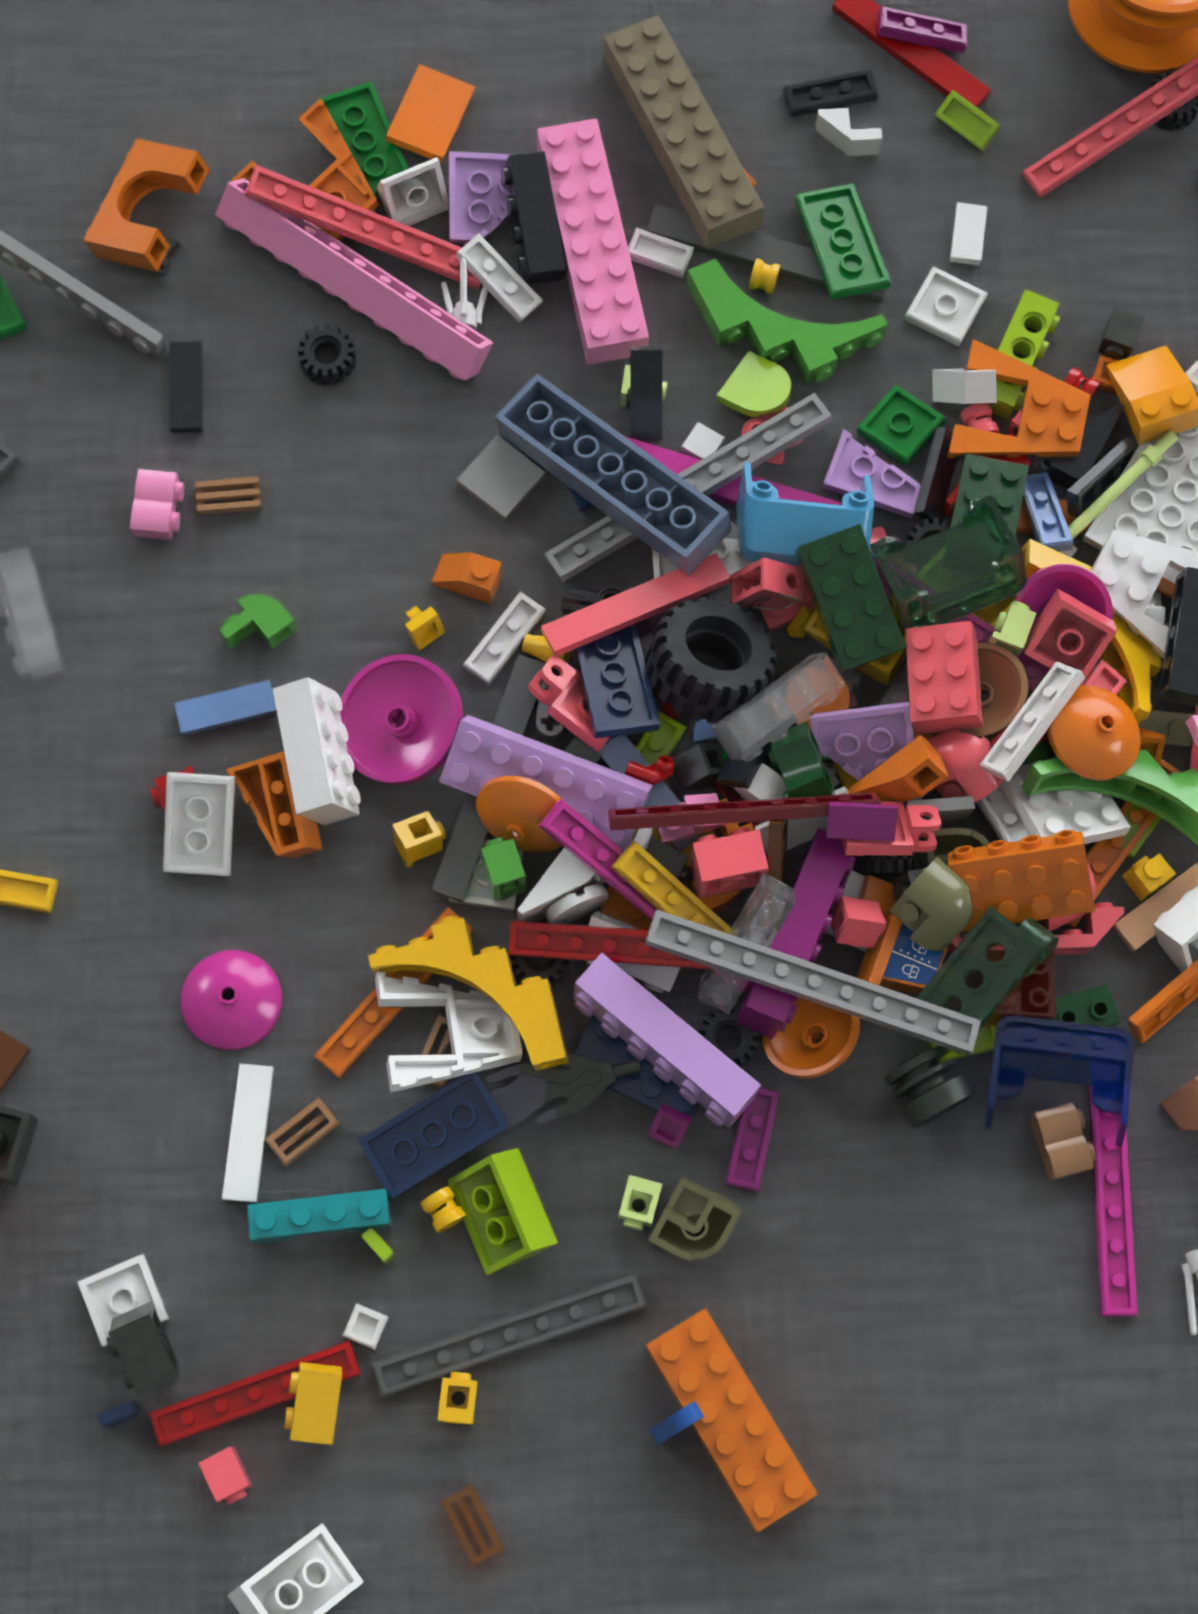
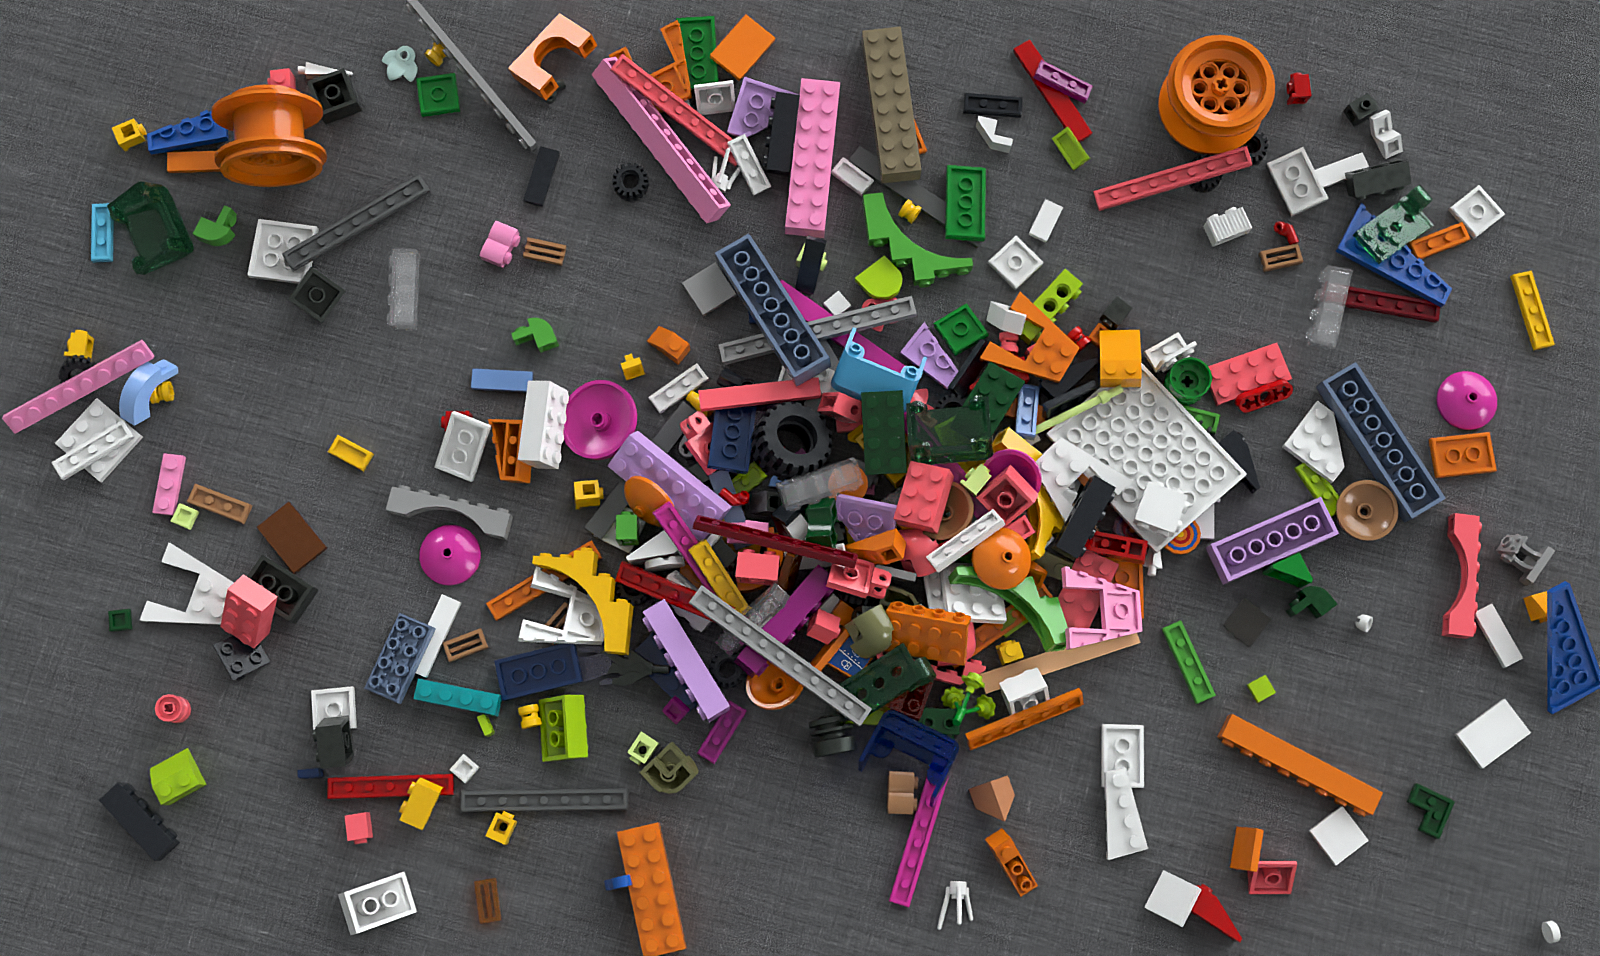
camera: 20 degrees right, 5 degrees up
(142, 937) = (409, 503): none -> light grey arch
(205, 1185) = (400, 658): none -> sand blue tile
(861, 821) = (840, 570): magenta tile -> none
(1139, 966) = (953, 698): none -> lime plant

